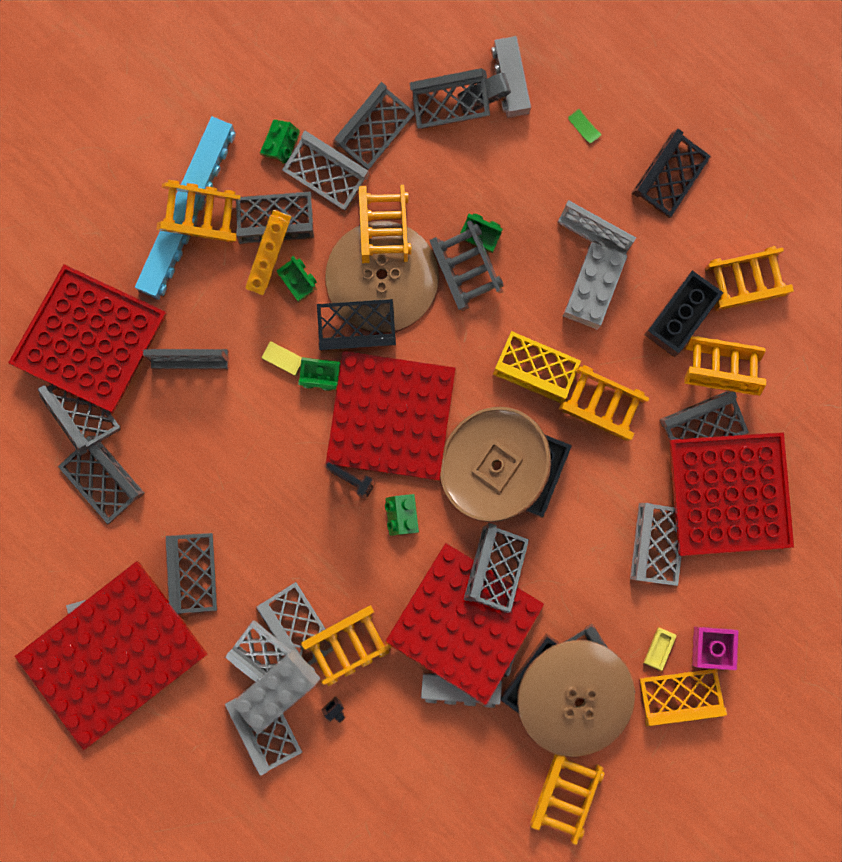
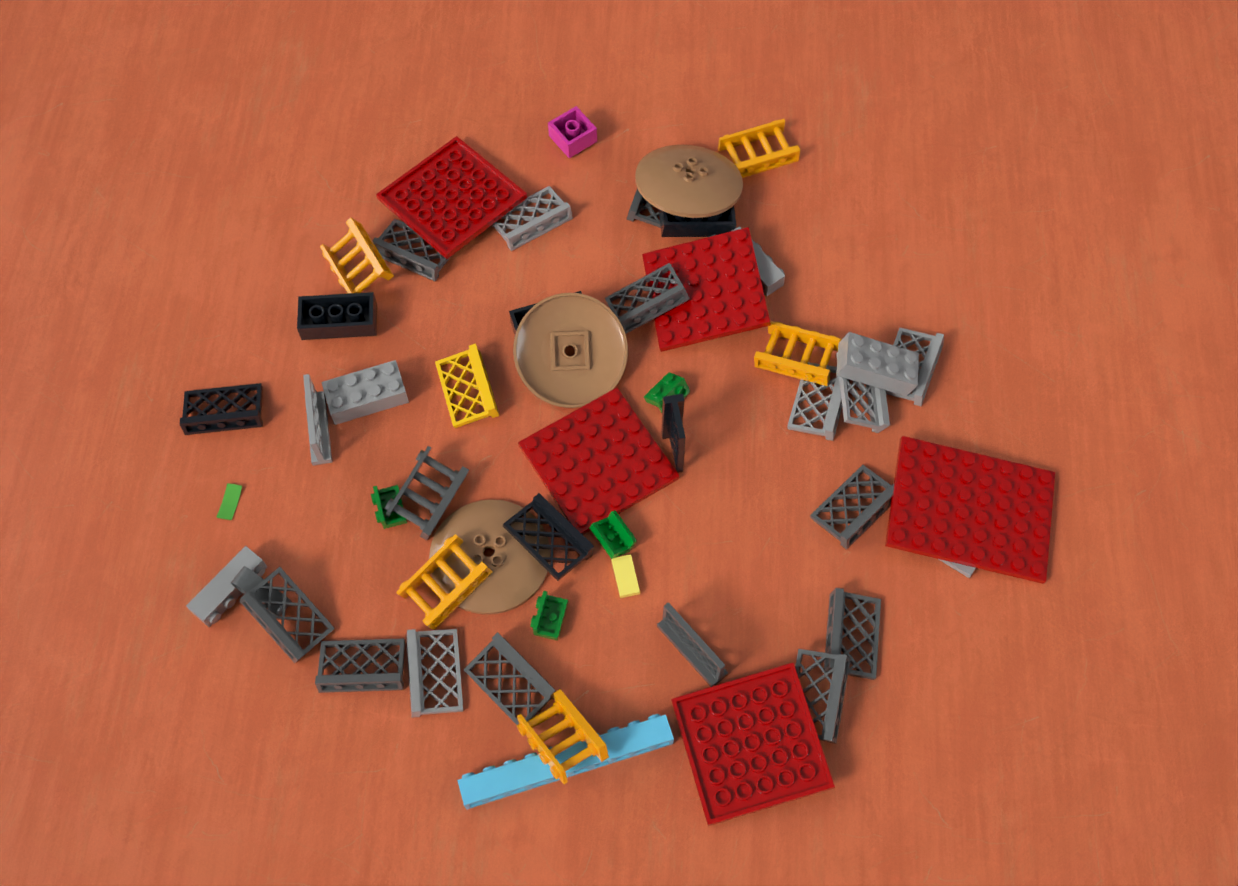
camera: 125 degrees left, 20 degrees down
(268, 252) = (547, 643): light orange fence -> none
(280, 140) = (438, 733): green bracket -> none
(334, 710) = (850, 325): black tile -> none
(588, 415) = (468, 308): light orange fence -> none
(659, 649) = (604, 167): light yellow tile -> none
(685, 714) = (636, 121): light orange fence -> none
(744, 296) = (275, 279): light orange fence -> none

